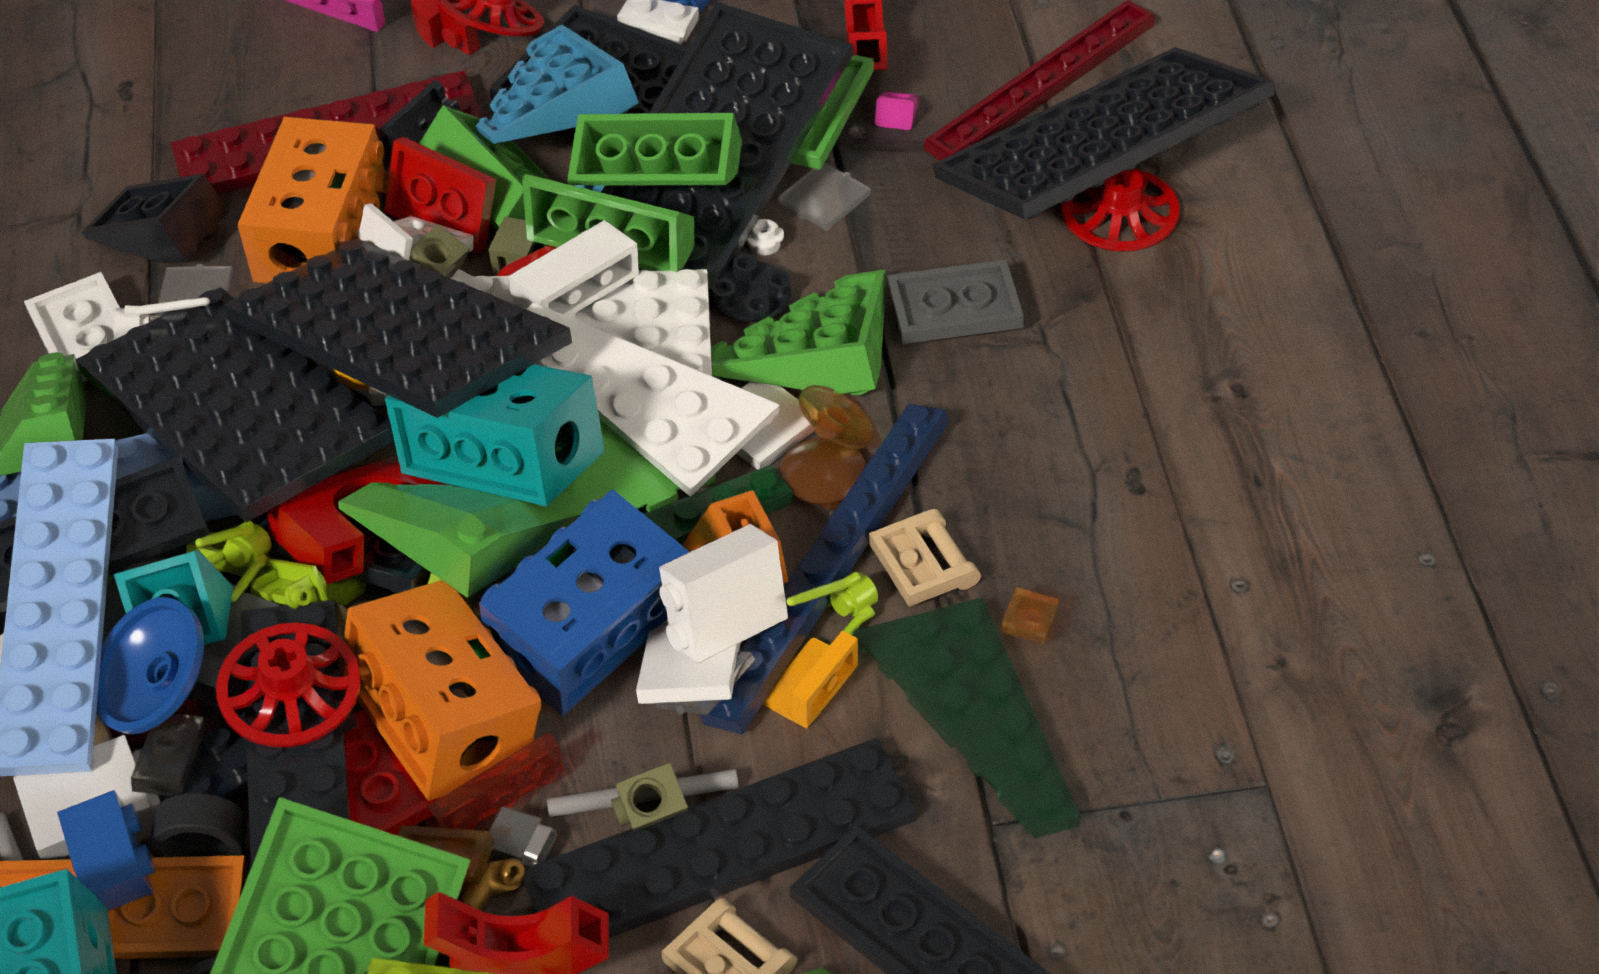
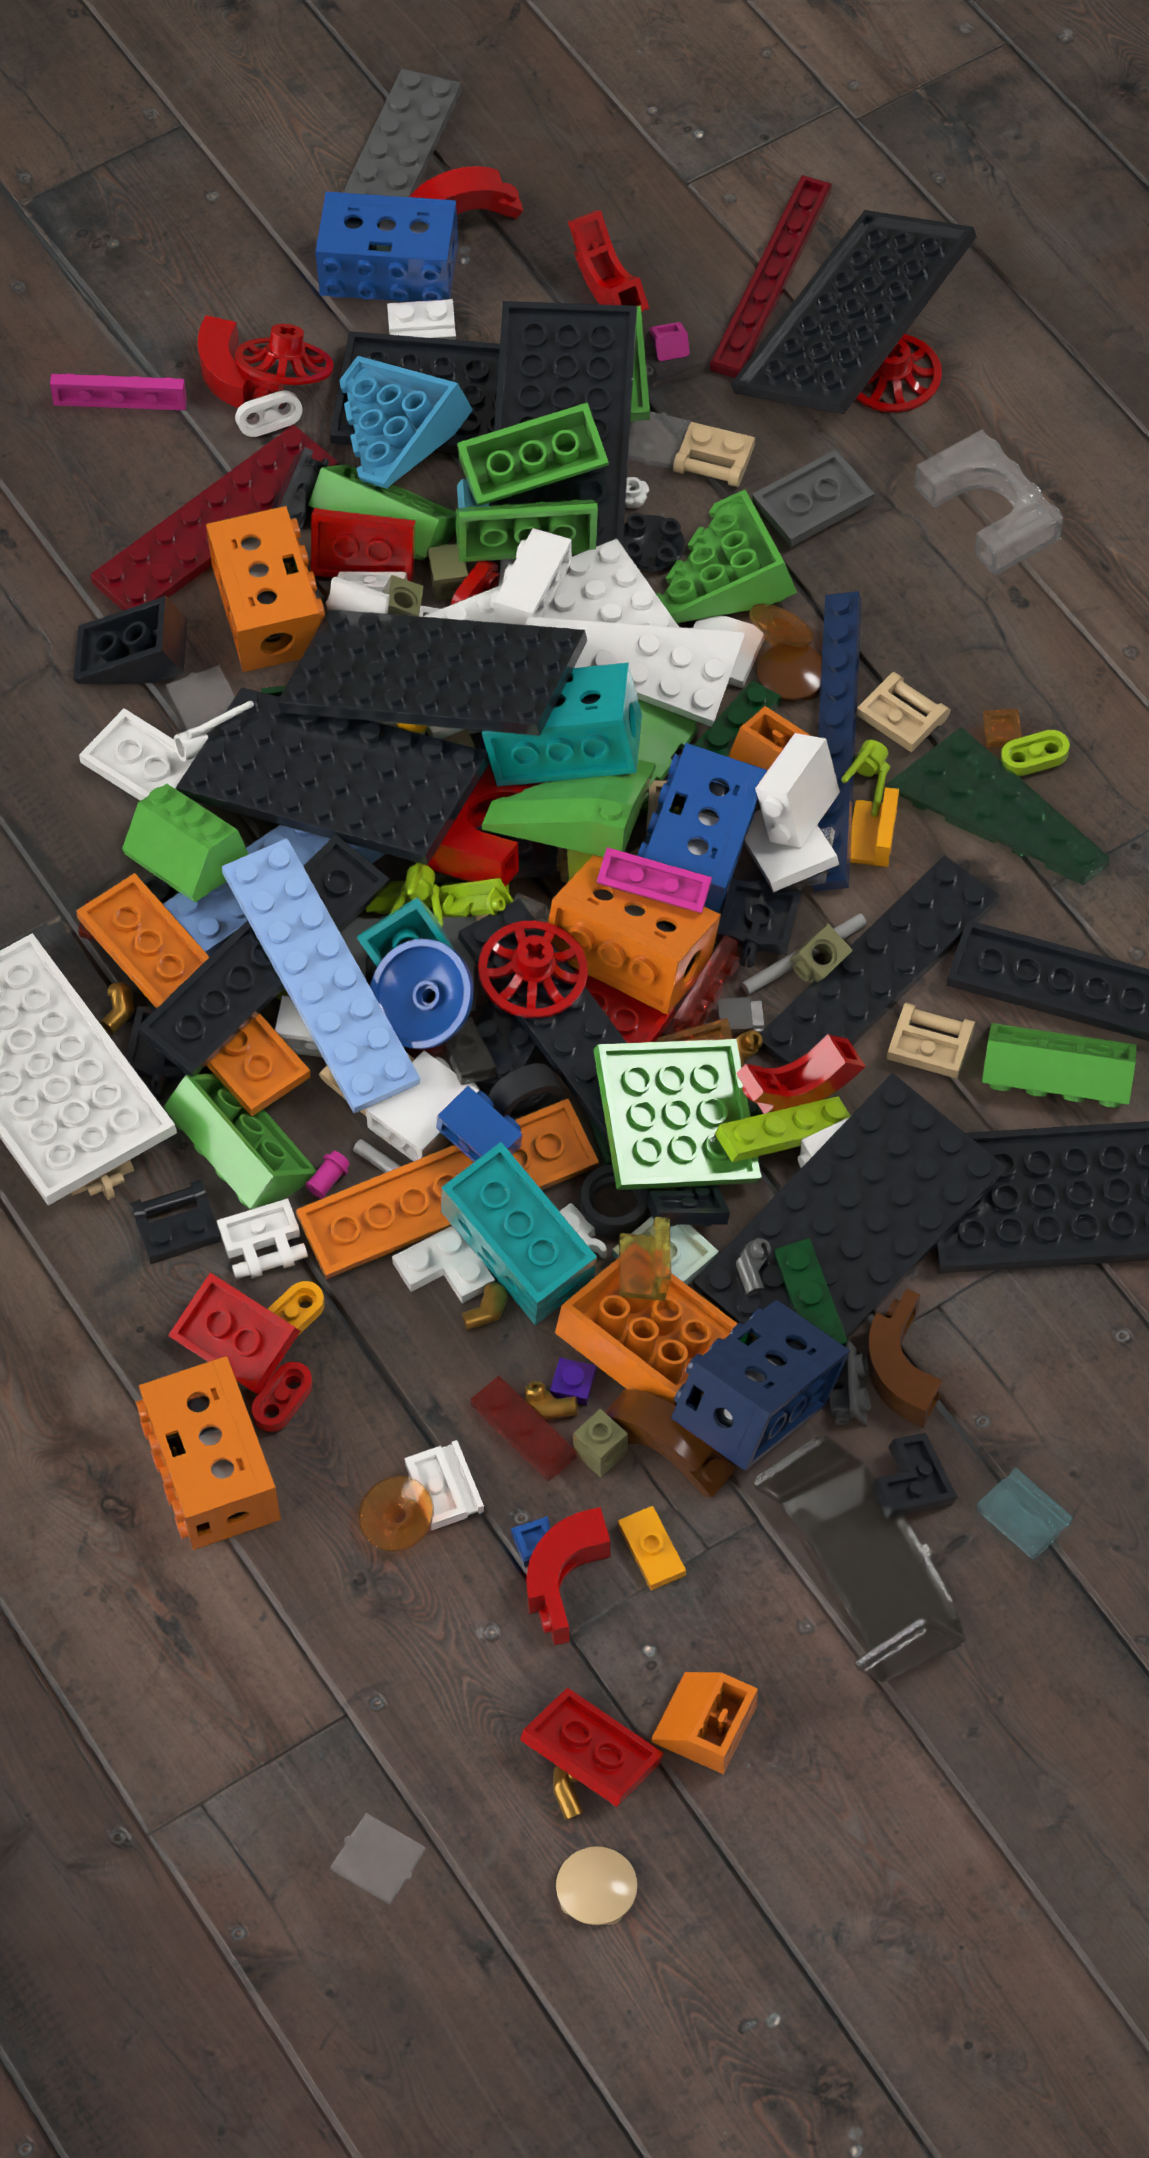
camera: 25 degrees left, 10 degrees up
(447, 54) = (268, 416): none -> white plate
(478, 630) = (654, 880): none -> dark pink plate
(609, 731) = (758, 918): none -> black plate
(879, 219) = (716, 447): none -> tan plate
(1054, 657) = (1033, 753): none -> lime plate
(1162, 325) = (981, 464): none -> clear arch

